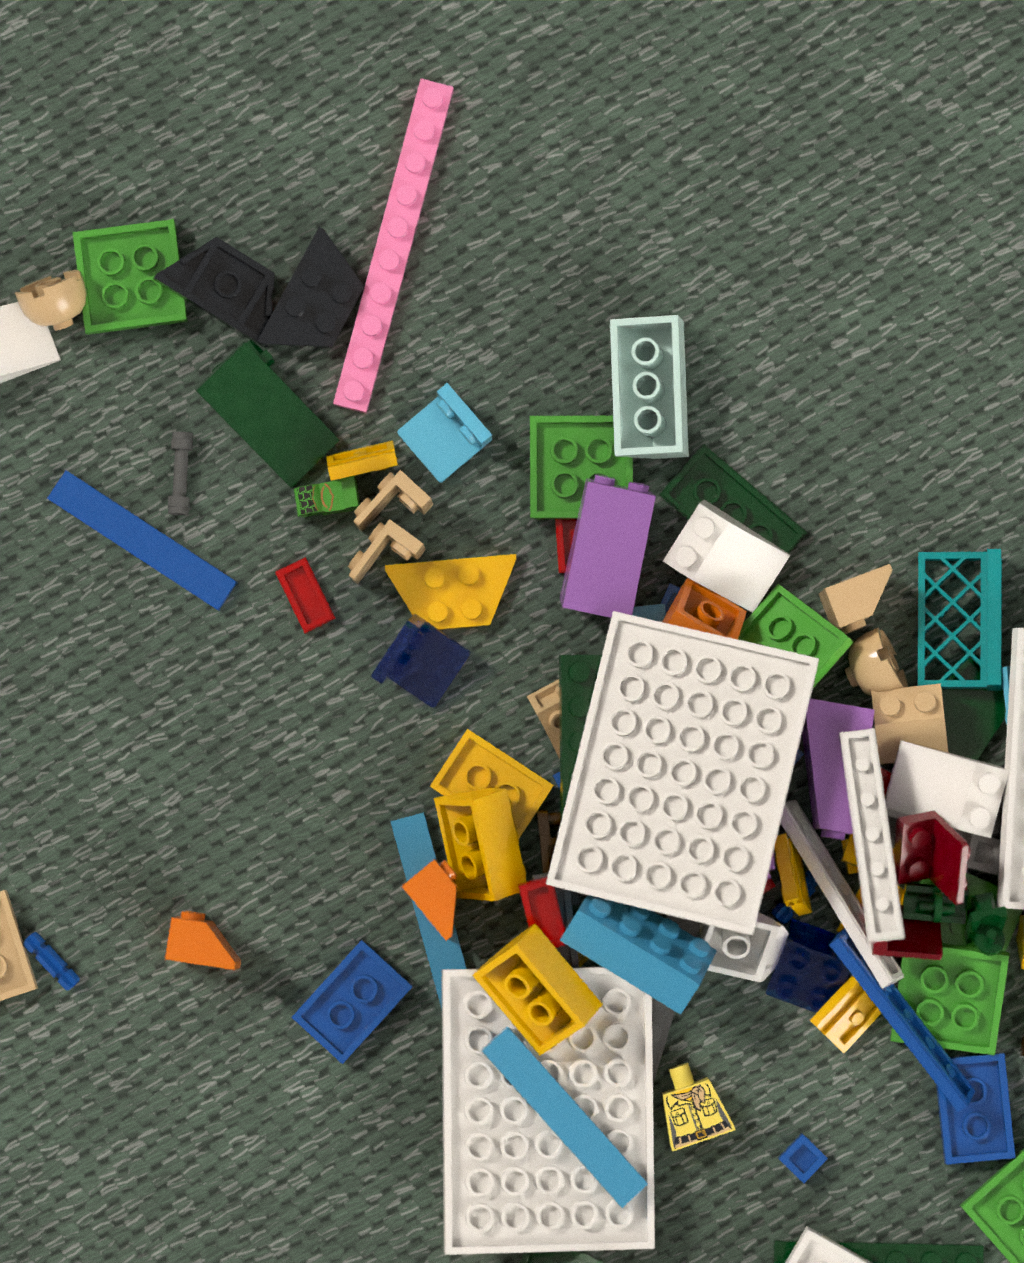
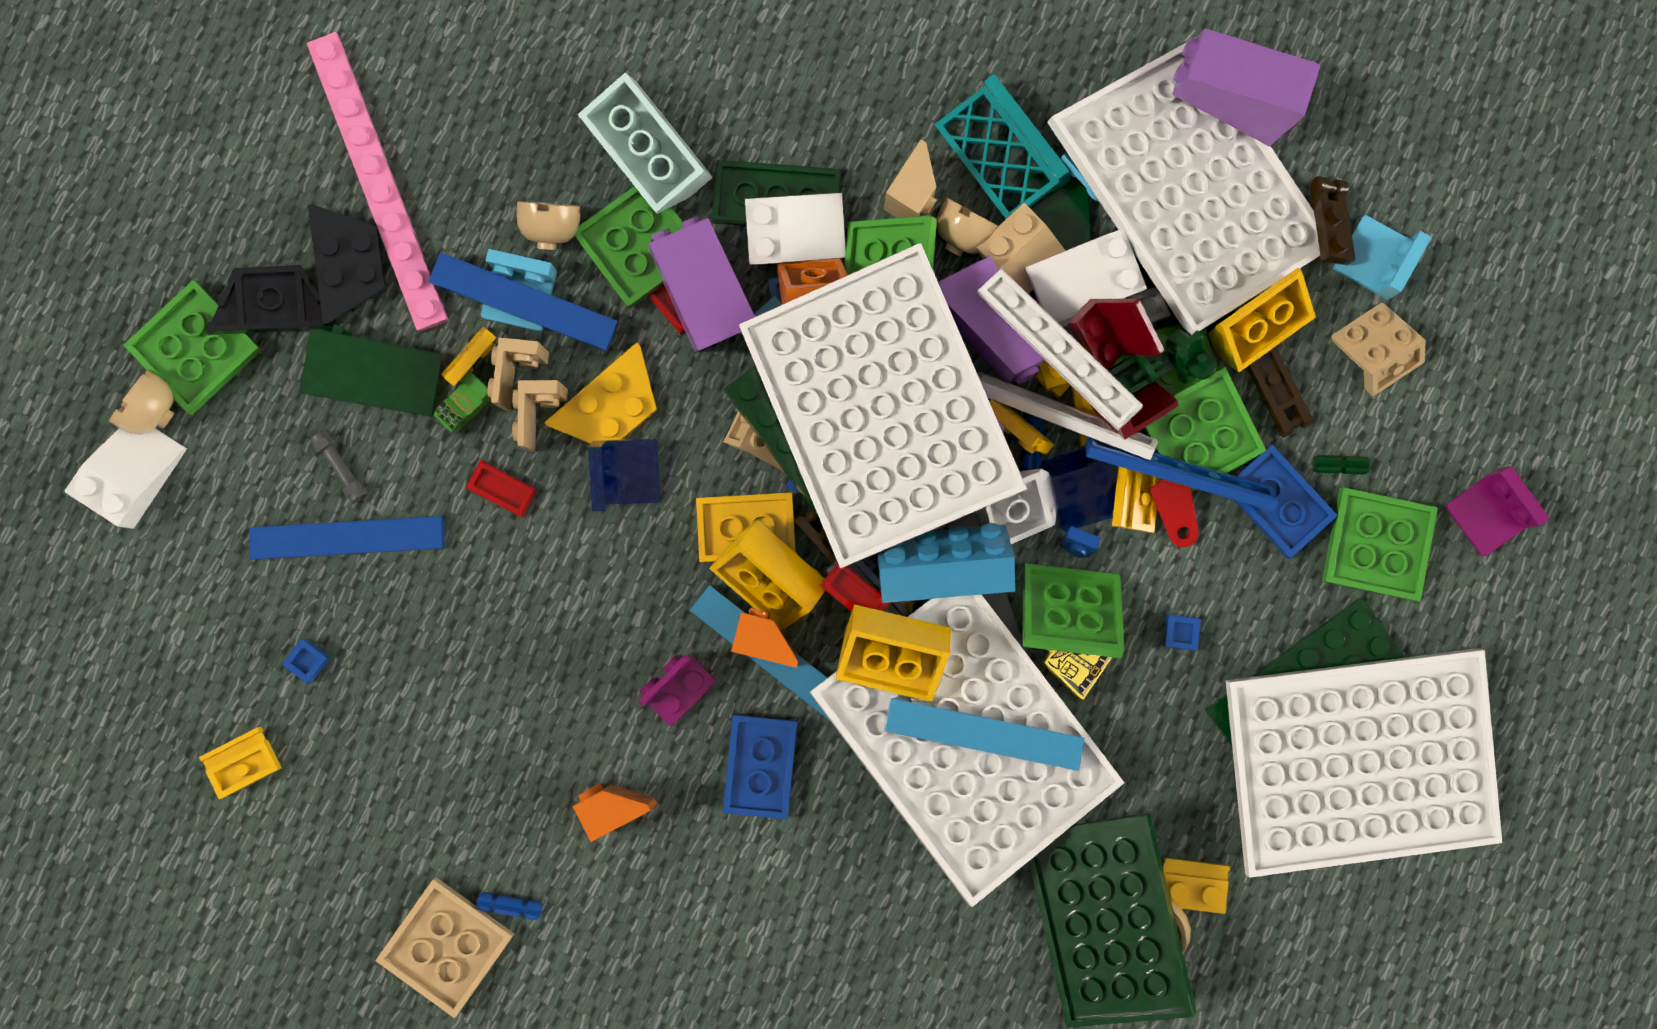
camera: 40 degrees left, 0 degrees up
(31, 621) = (306, 660): none -> blue plate
(331, 883) = (678, 688): none -> magenta bracket
(443, 448) = (523, 302): none -> blue tile
(515, 393) = (547, 223): none -> tan cylinder
(720, 1067) = (1072, 611): none -> bright green plate
(771, 1014) = (1079, 542): none -> blue plate
(876, 1049) = (1176, 510): none -> red piece

